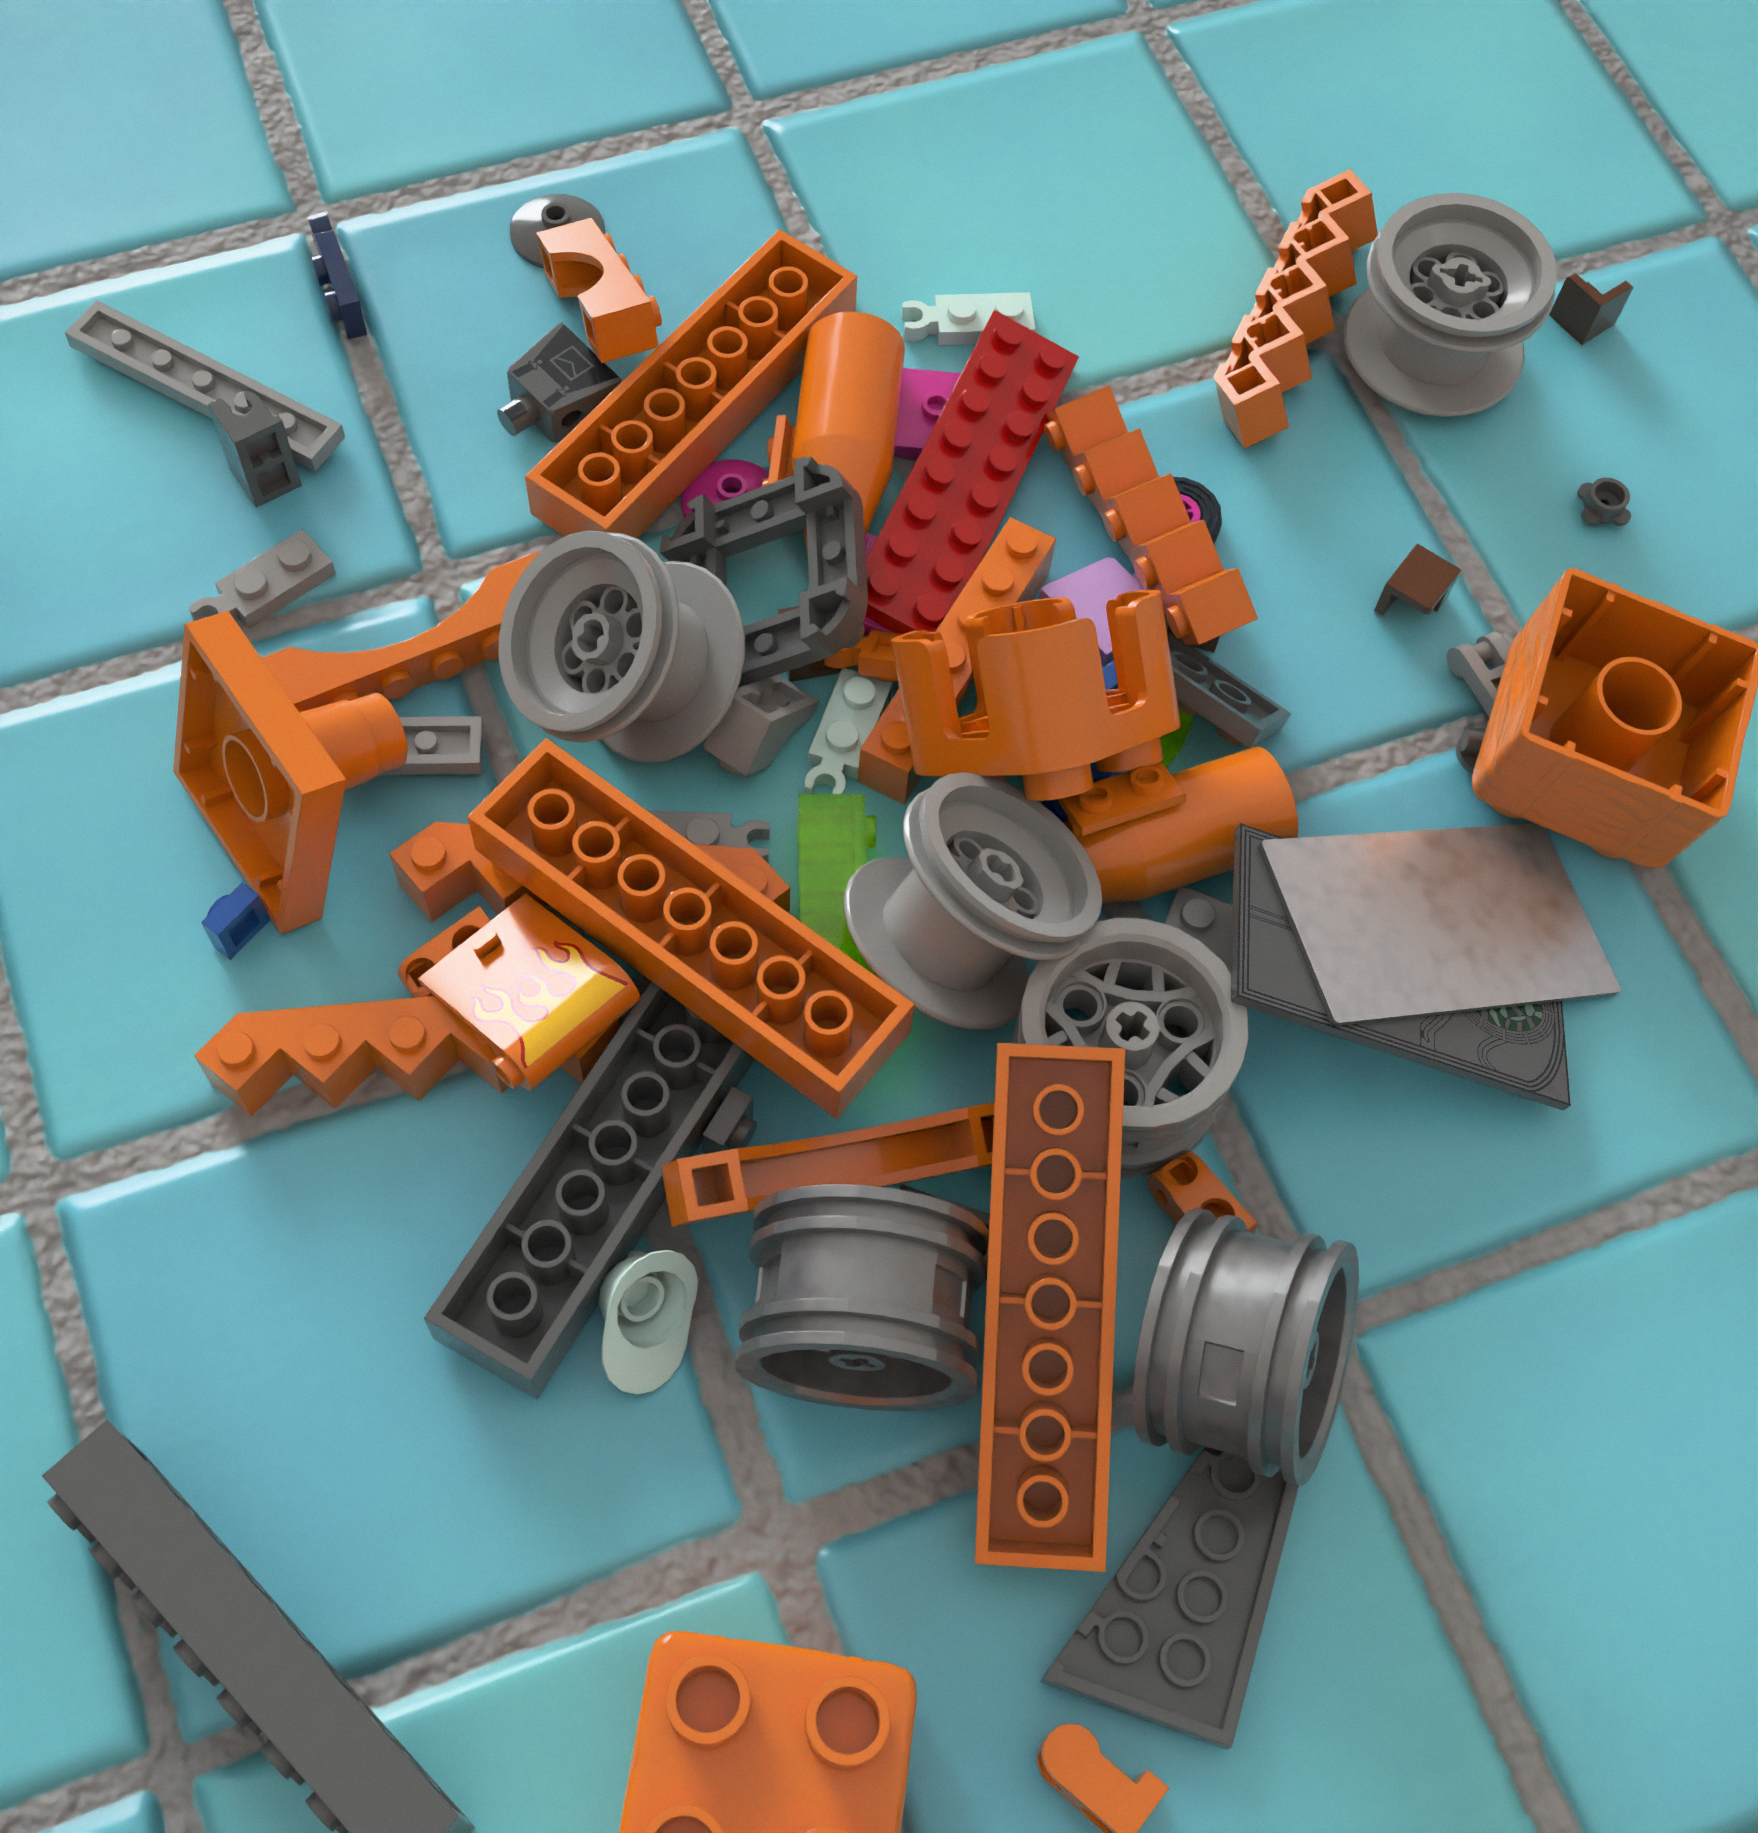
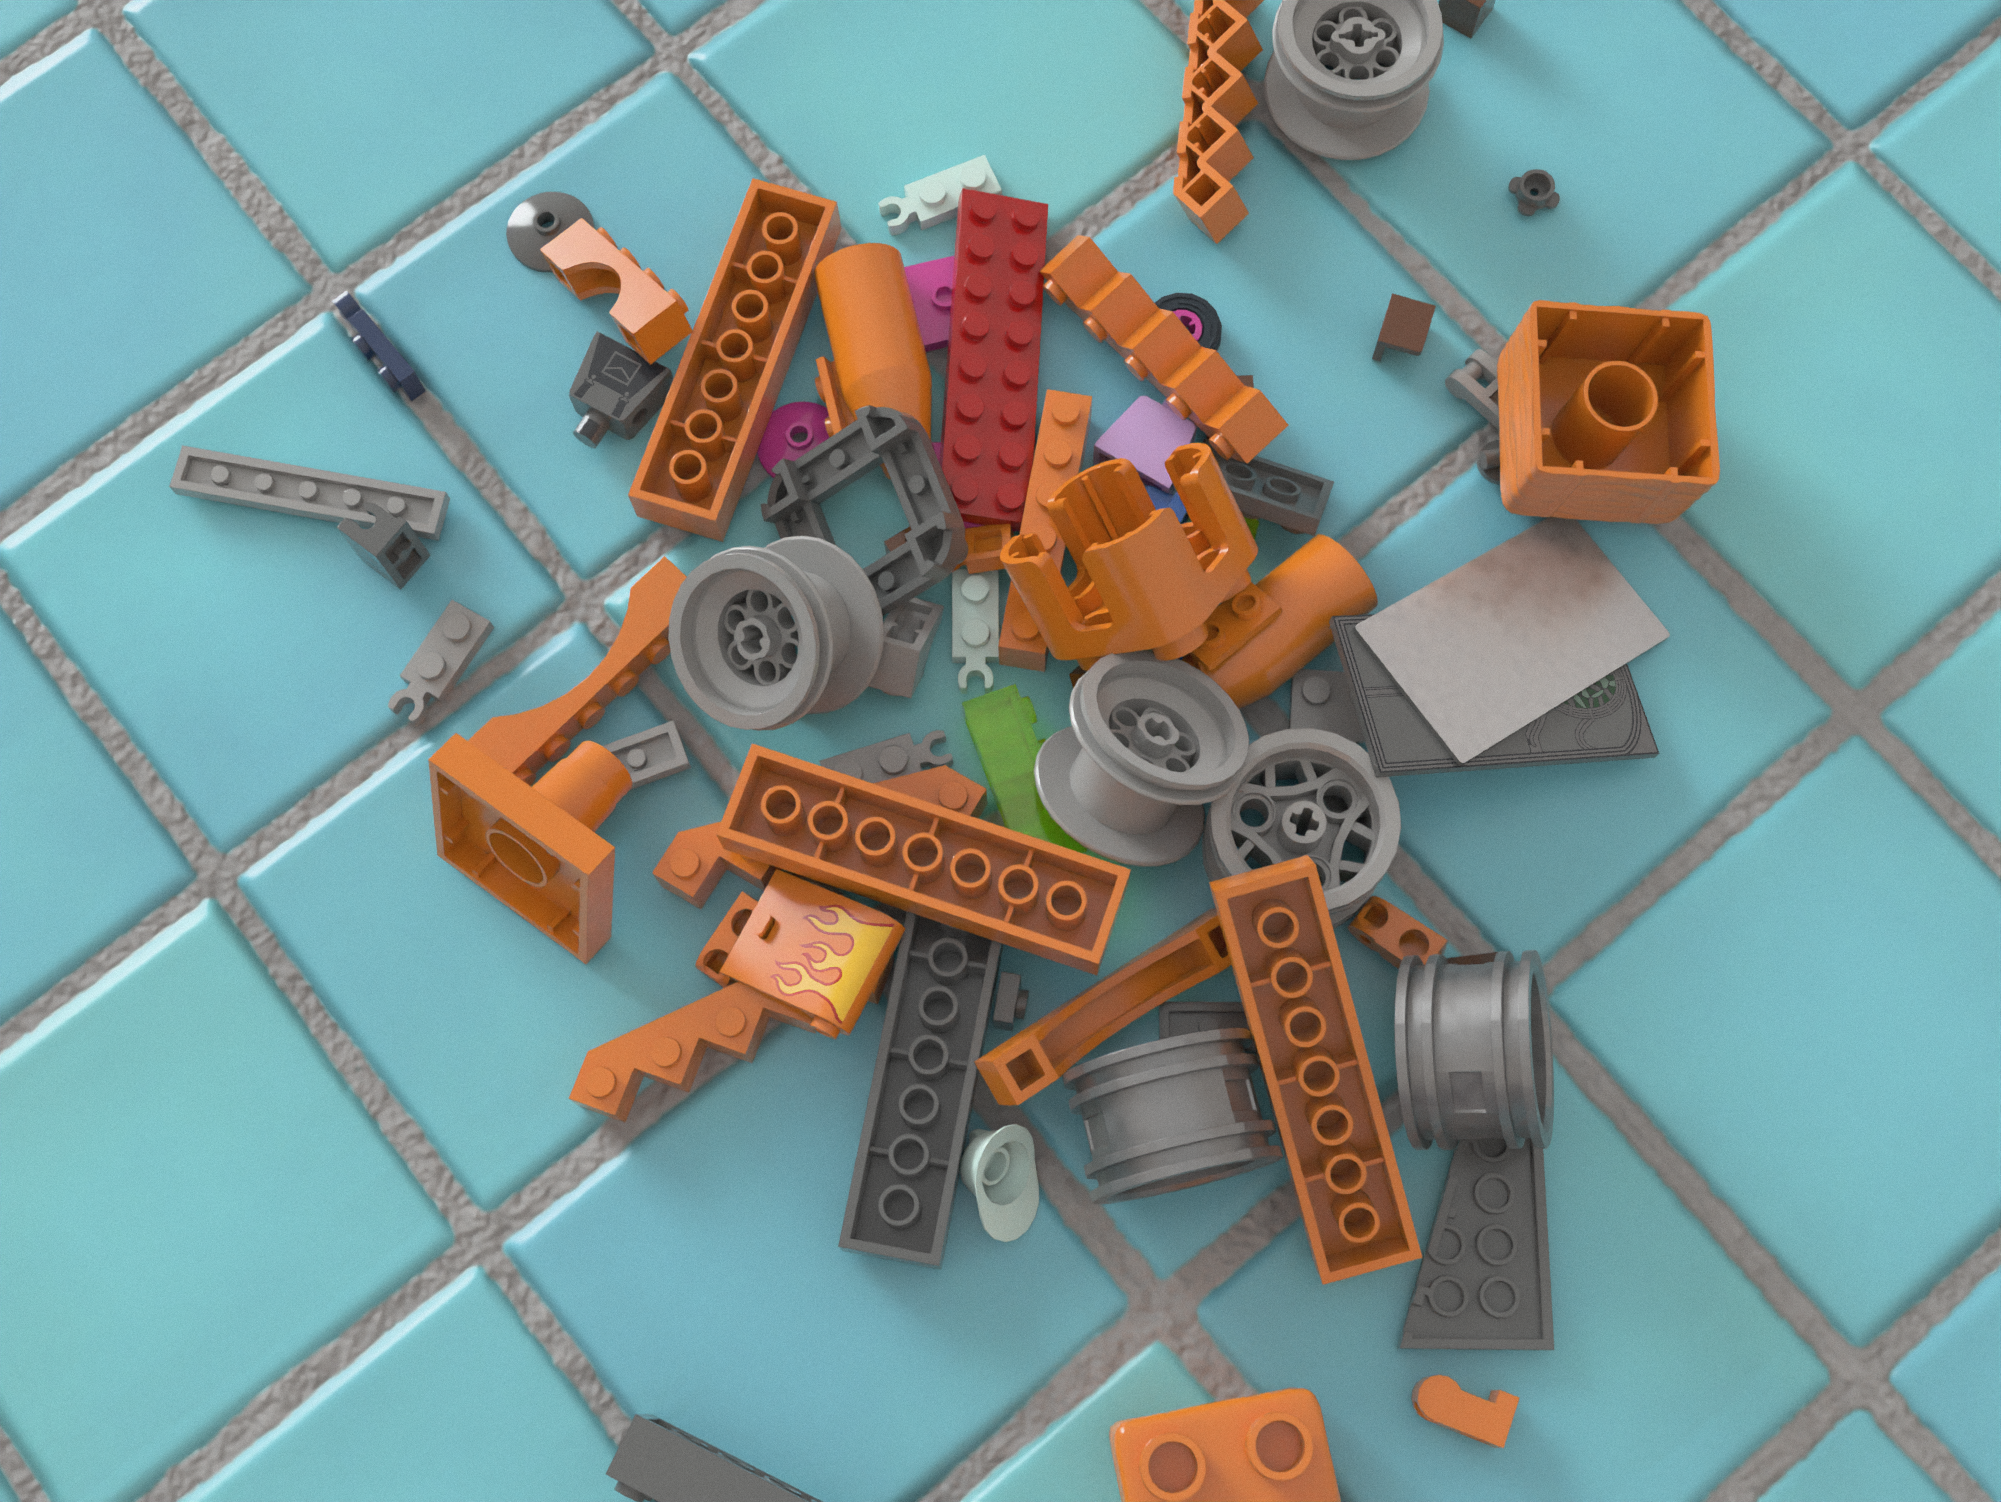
camera: 10 degrees left, 10 degrees up
(235, 920) = (545, 967): blue plate -> none

